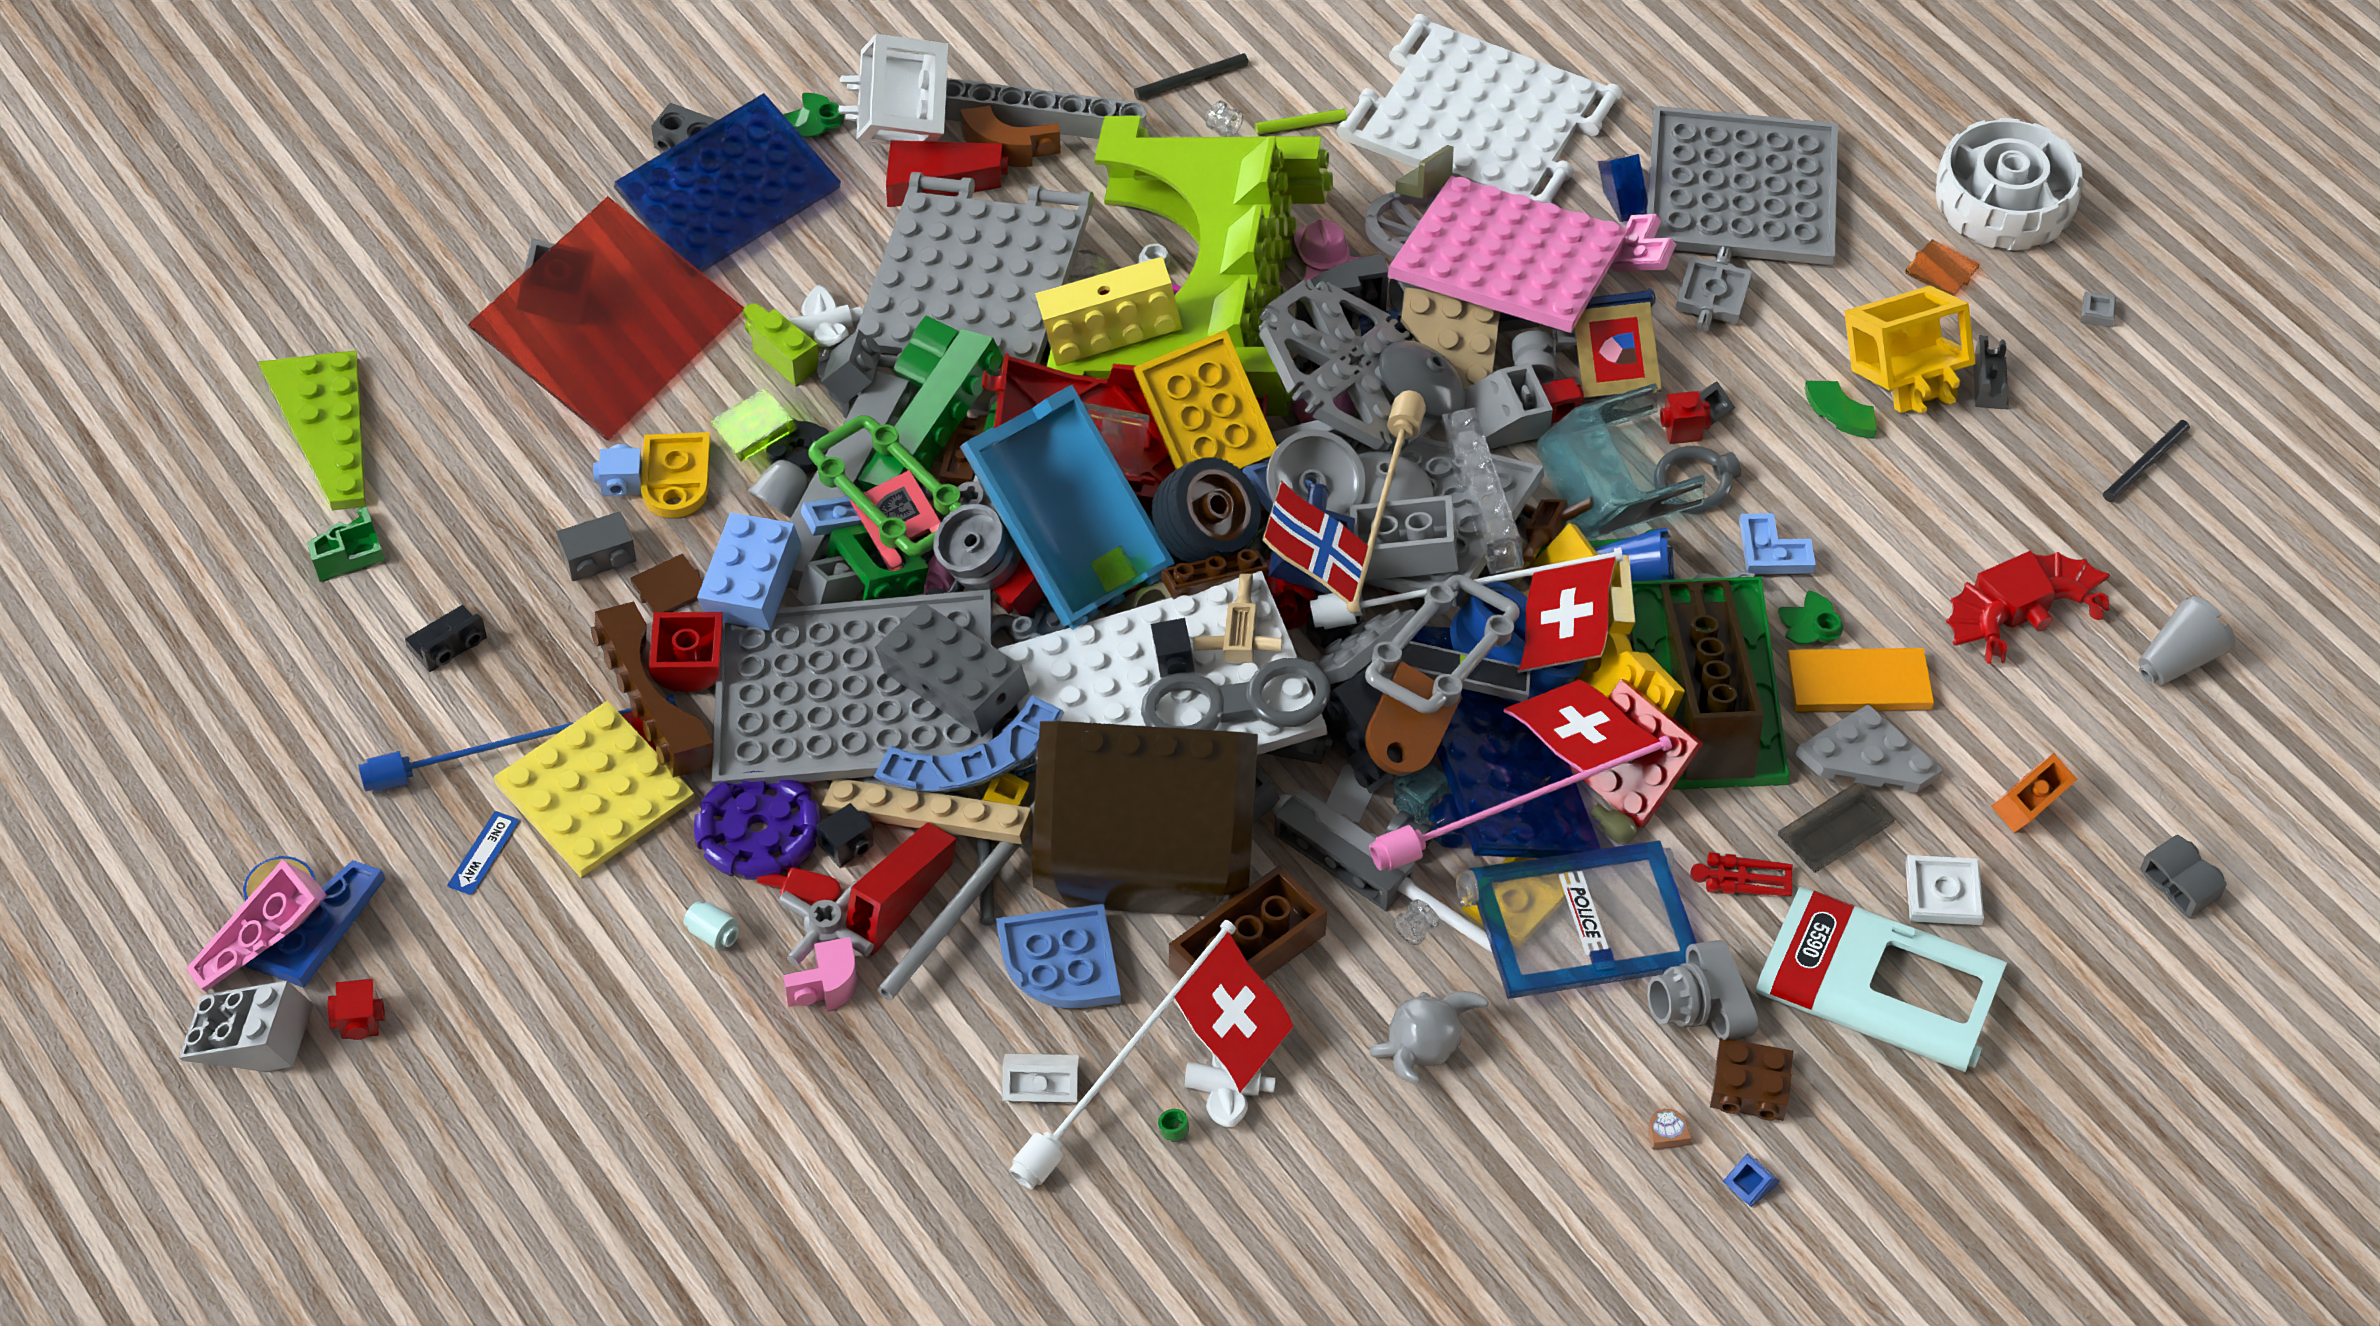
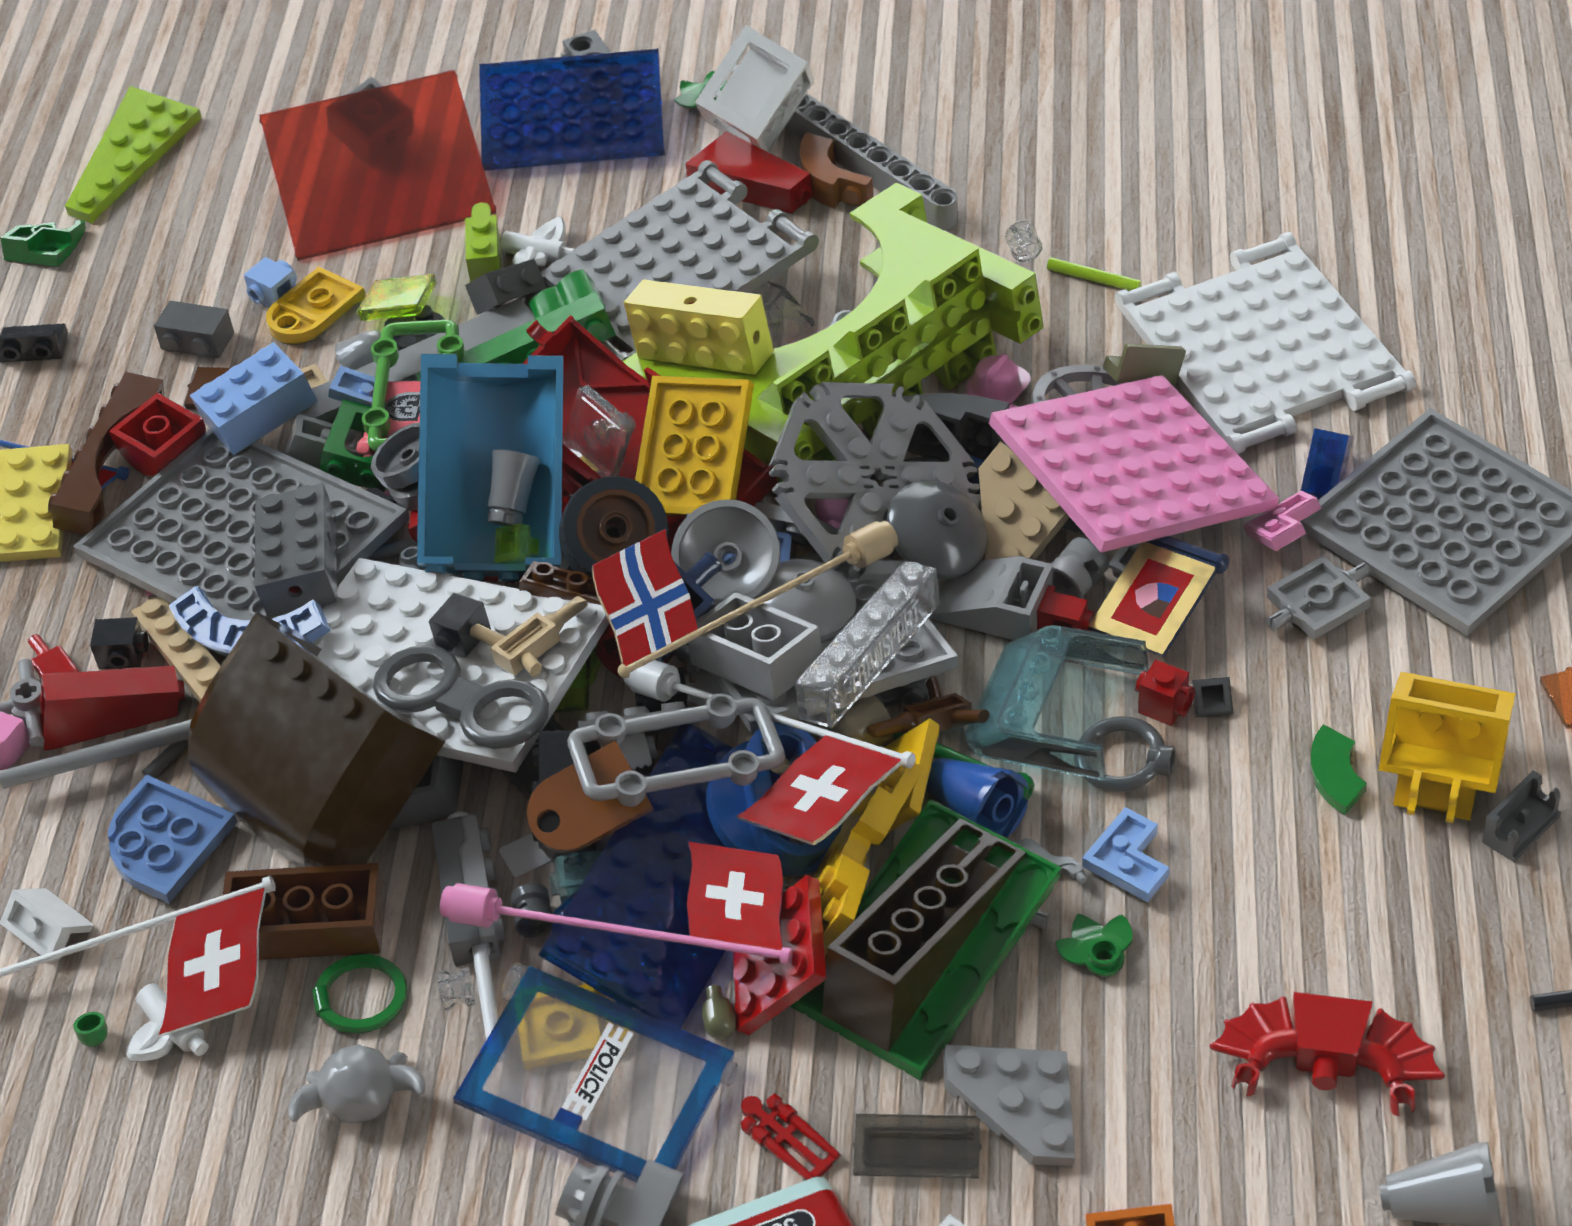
camera: 45 degrees right, 5 degrees down
(755, 807) = (55, 596): dark purple plate -> none
(1084, 521) = (510, 486): none -> light grey plant
(1191, 76) = (1039, 196): pearl dark grey bar -> none
(1334, 1001) = (358, 1026): none -> green piece
(1488, 677) = (701, 801): black tile -> none
(1858, 677) = (1089, 1025): light orange tile -> none

